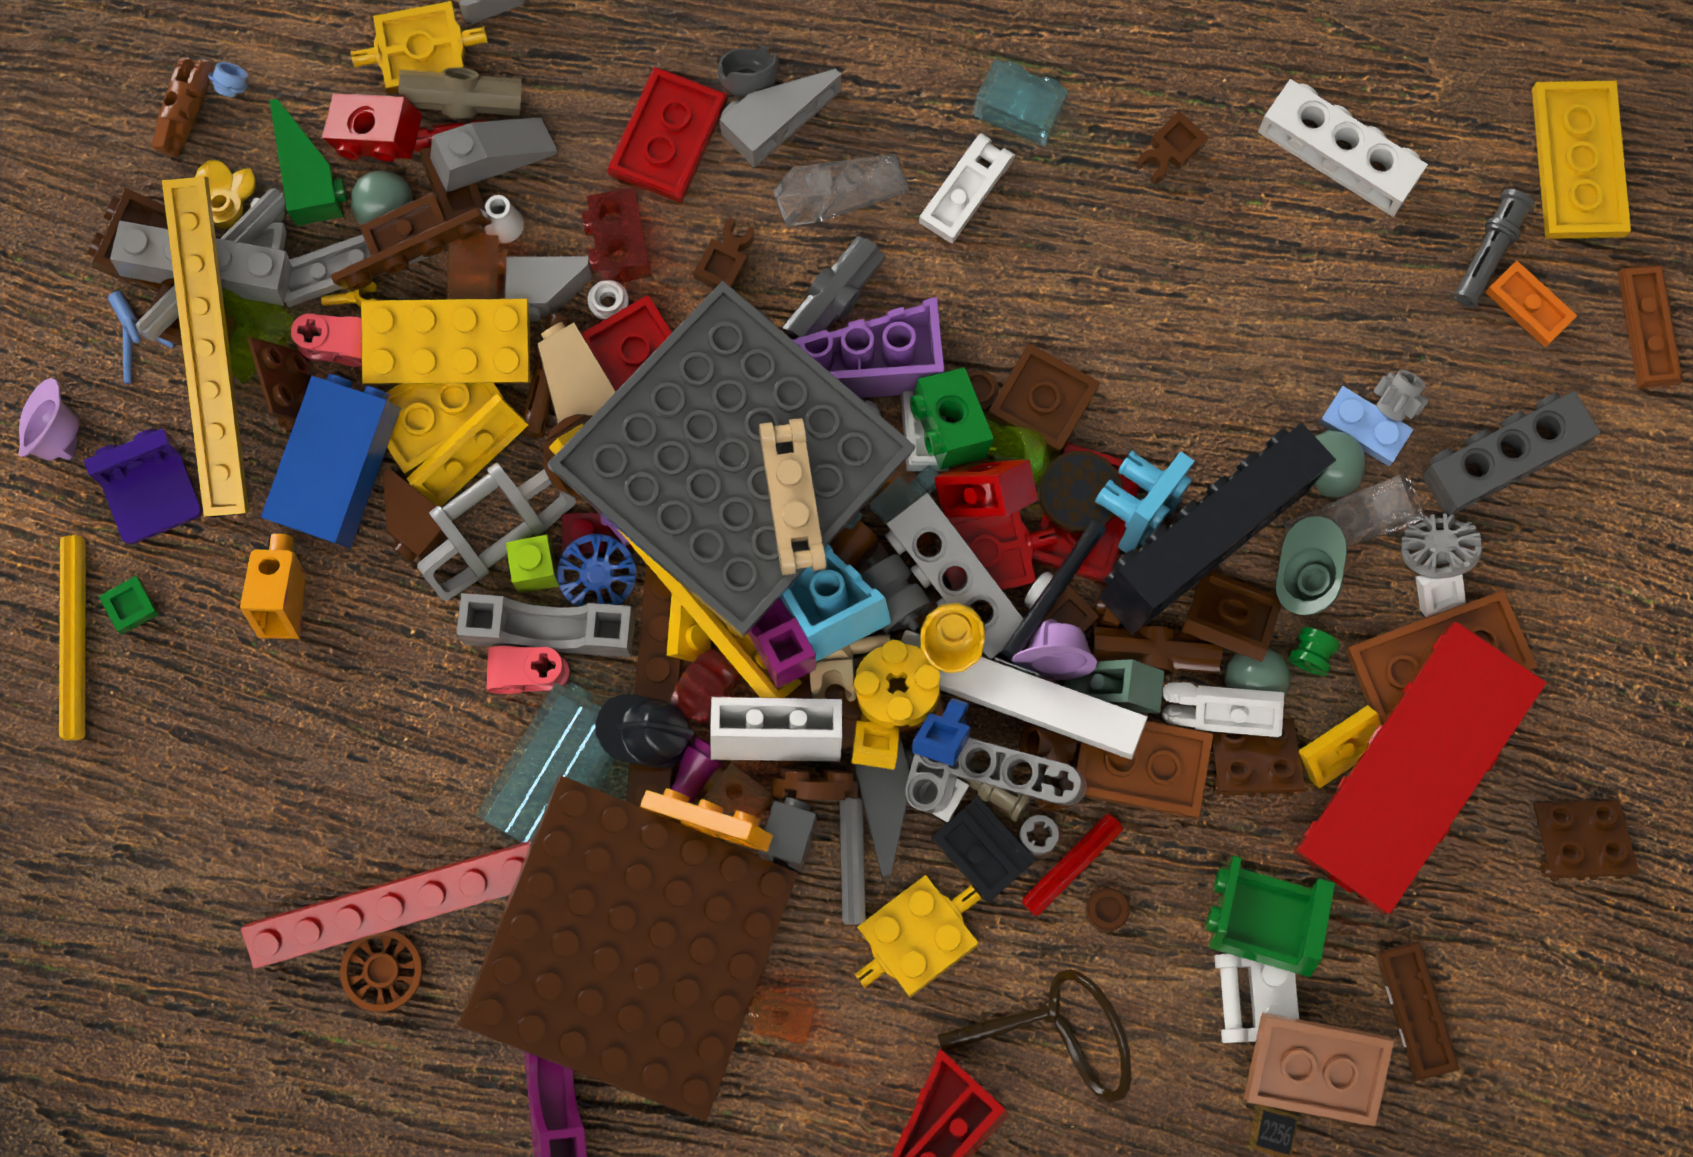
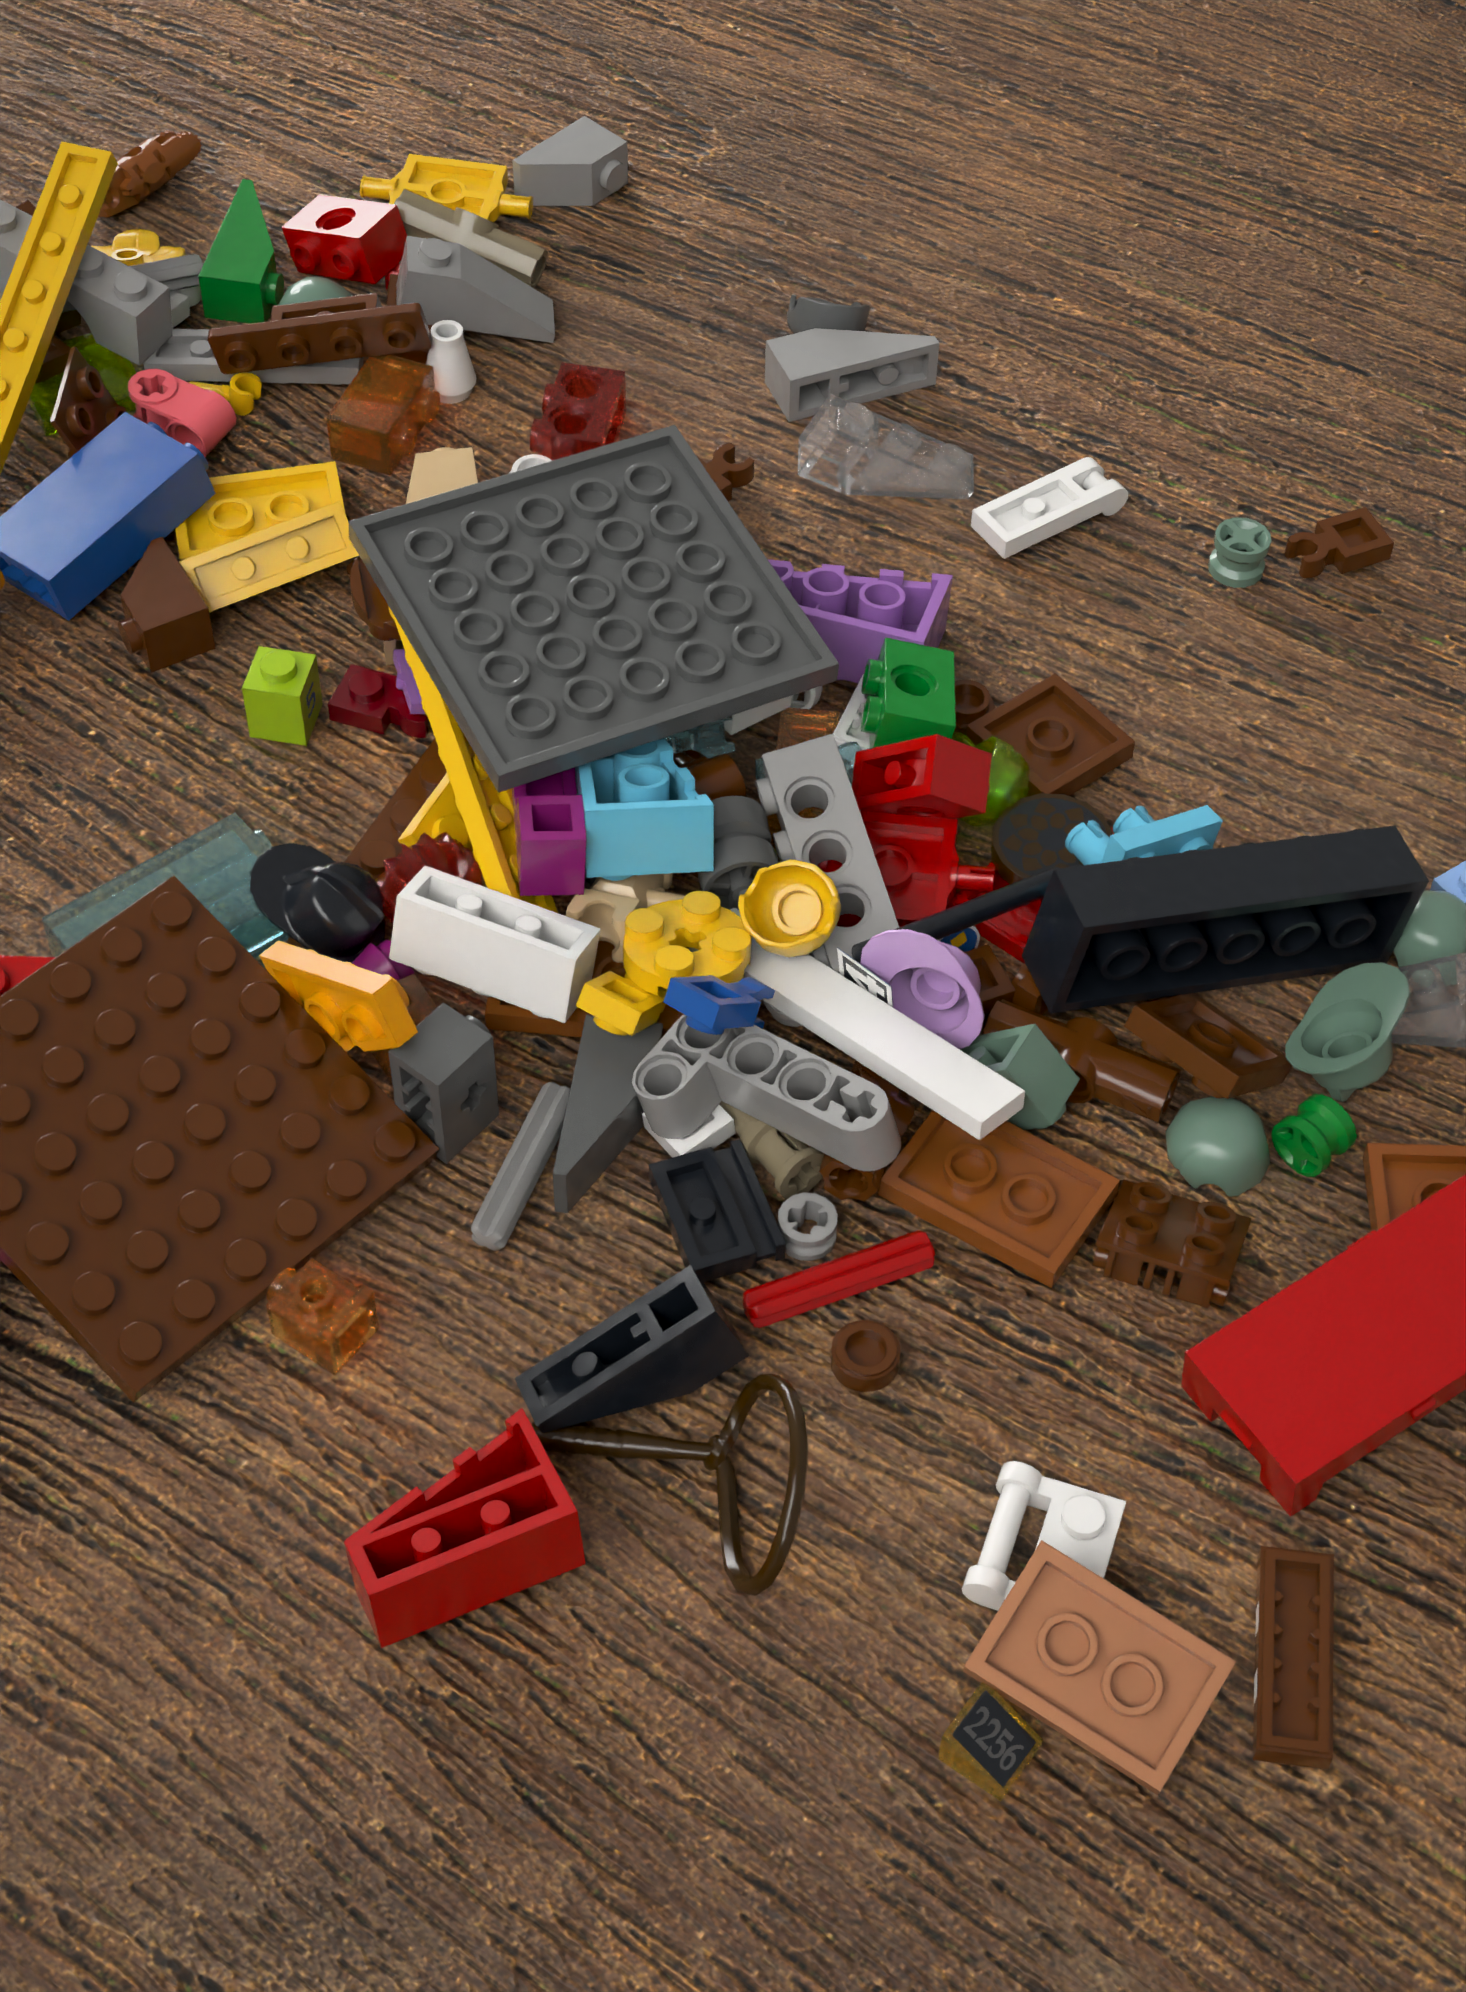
camera: 20 degrees right, 25 degrees down
(228, 79) = (210, 164): light blue plate -> none
(445, 341) = (310, 441): yellow plate -> none
(456, 542) = (217, 682): light grey bar -> none
(518, 669) = (200, 794): coral piece -> none
(546, 281) = (459, 422): light grey slope -> none
(577, 630) = (201, 737): light grey arch -> none
(596, 570) = (359, 734): blue wheel -> none
(667, 134) = (695, 358): red tile -> none
(792, 497) = (643, 651): tan plate -> none
(830, 785) = (524, 1040): reddish brown plate -> none
(835, 290) = (845, 543): dark grey piece -> none
(917, 936) = (562, 1283): yellow plate -> none
(980, 977) = (635, 1358): none -> black slope
(1020, 101) = (1158, 444): clear light blue brick -> none
(1108, 170) = (1239, 552): none -> sand green wheel
(1224, 709) = (1157, 1153): white hinge -> none
(1269, 919) = (1102, 1437): green panel -> none
(1339, 747) = (1285, 1257): yellow plate -> none

